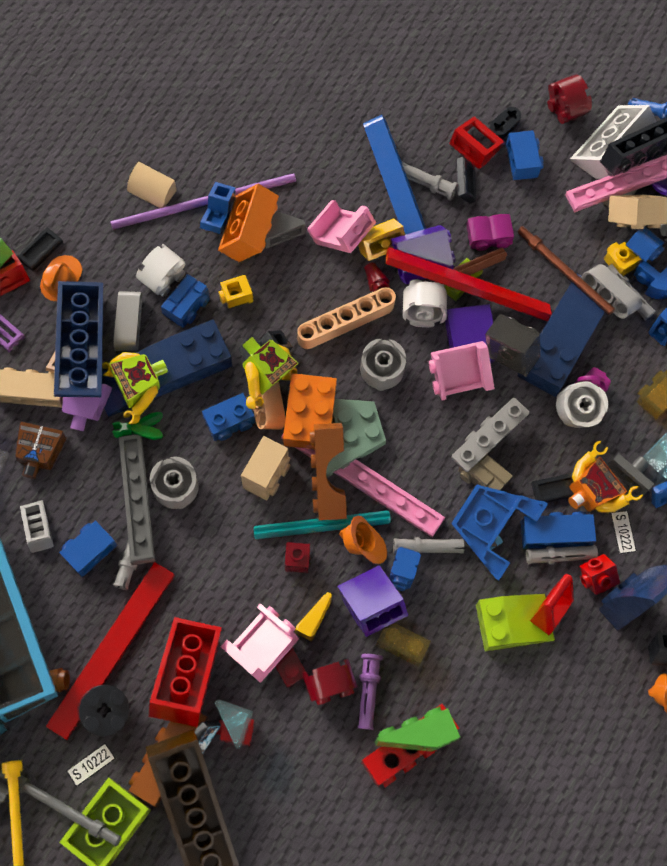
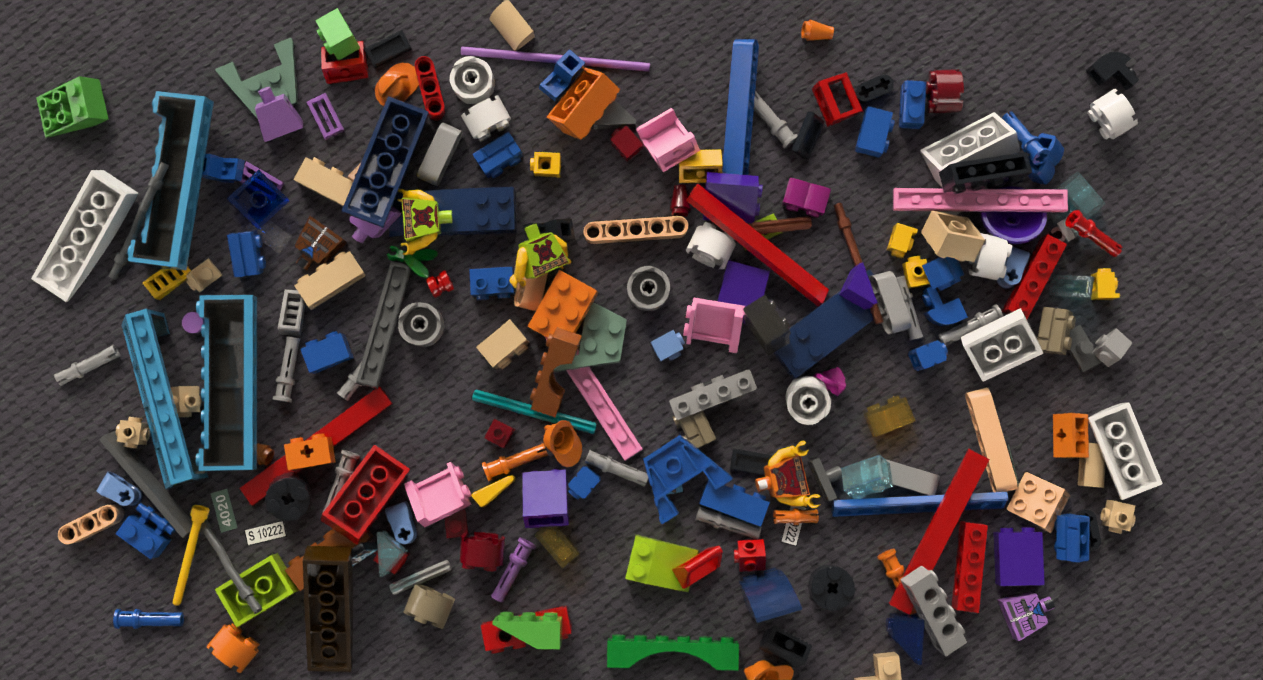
camera: 30 degrees right, 15 degrees up
(36, 759) = (224, 510): none -> sand green sticker
(58, 594) = (291, 343): none -> light grey pin
(63, 477) = (329, 279): none -> tan brick
(91, 258) = (429, 78): none -> red beam
(121, 654) = (297, 457): none -> orange brick
(132, 242) = (460, 80): none -> white brick
(151, 663) = (343, 473): none -> light grey pin
(177, 439) = (440, 284): none -> red wheel
(231, 687) = (401, 518): none -> medium blue piece
(275, 740) = (420, 577): none -> light grey axle
(298, 762) = (429, 605): none -> dark tan brick
(303, 246) = (626, 143): none -> dark red brick
(315, 587) = (504, 464): none -> orange pin
(425, 410) = (668, 346): none -> medium blue brick
(430, 94) = (813, 30): none -> orange cone
(524, 725) = (626, 652): none -> green arch
(545, 121) = (912, 104): none -> blue brick
(578, 287) = (858, 288): none -> dark purple slope
(593, 235) = (901, 240): none -> yellow brick
(622, 521) = (795, 516): none -> orange pin

